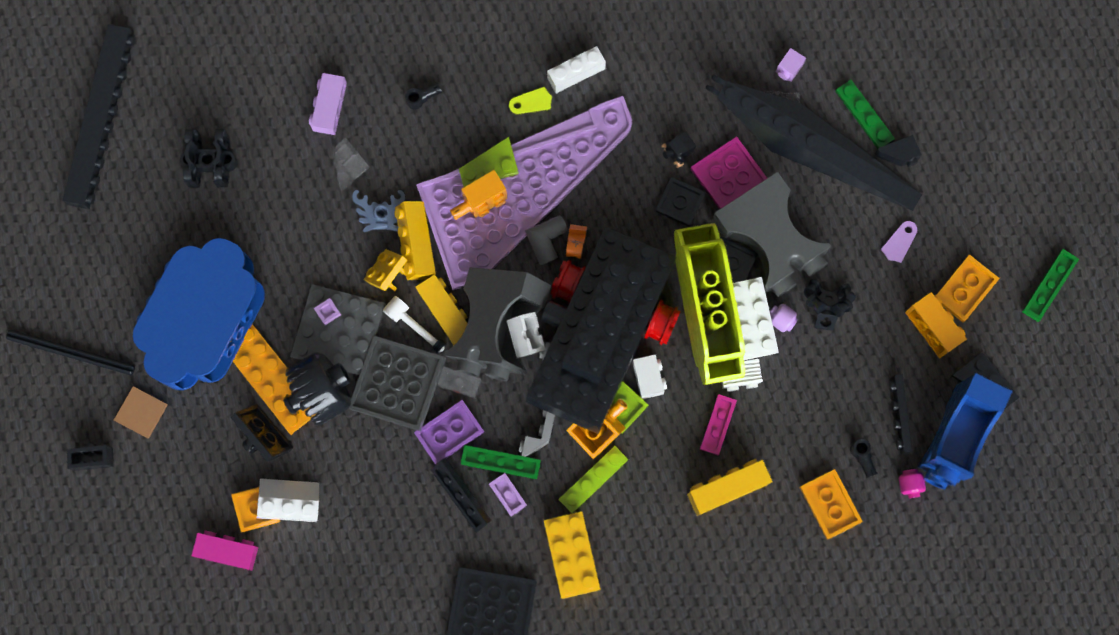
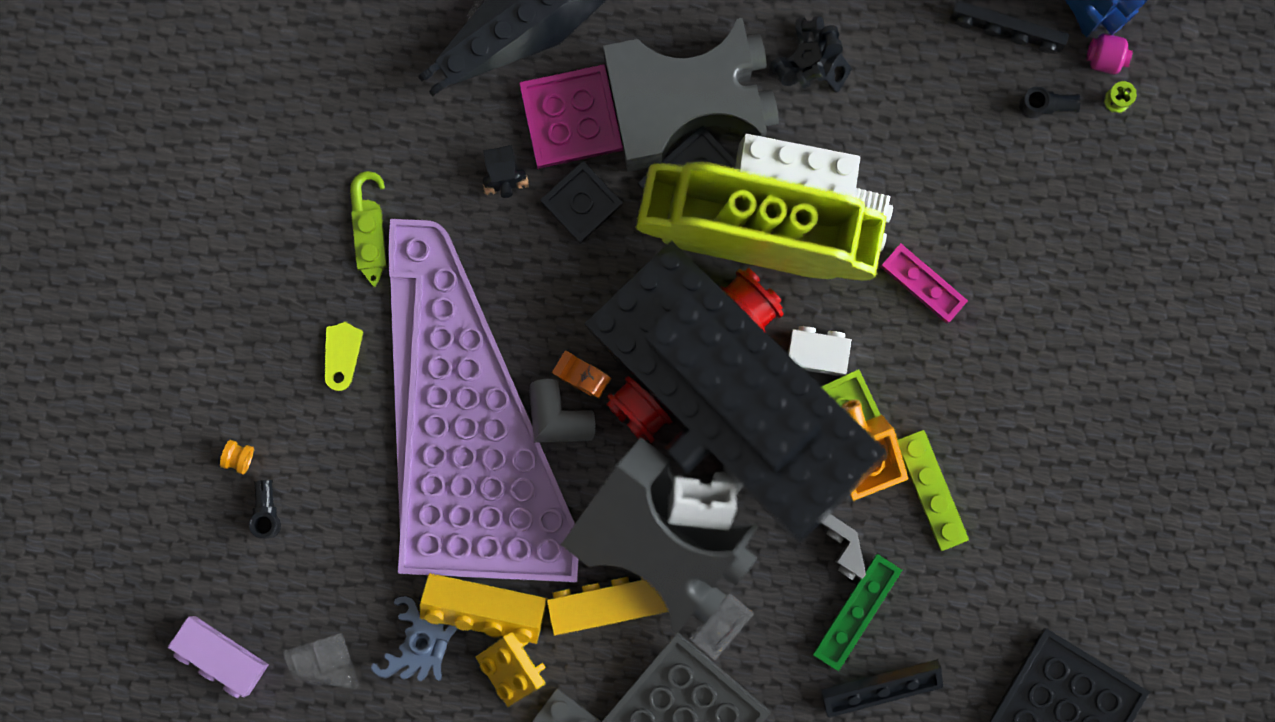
camera: 65 degrees left, 5 degrees up
(397, 309) = (575, 675): white piece -> none
(447, 67) = (236, 456): none -> light orange wheel
(449, 432) = (785, 669): medium lavender plate -> none
(481, 196) = (461, 486): light orange brick -> none
(497, 158) = (416, 453): lime wing -> none
(507, 494) = (907, 620): lavender plate -> none
(571, 555) = (1030, 564): yellow brick -> none
(576, 69) = (322, 269): white brick -> none
(611, 87) = (368, 229): none -> lime plate
(730, 487) = (1022, 305): yellow brick -> none
(783, 317) = (809, 128): lavender head -> none
(831, 504) = (1095, 175): light orange plate -> none
(893, 499) = (1120, 88): none -> lime bush

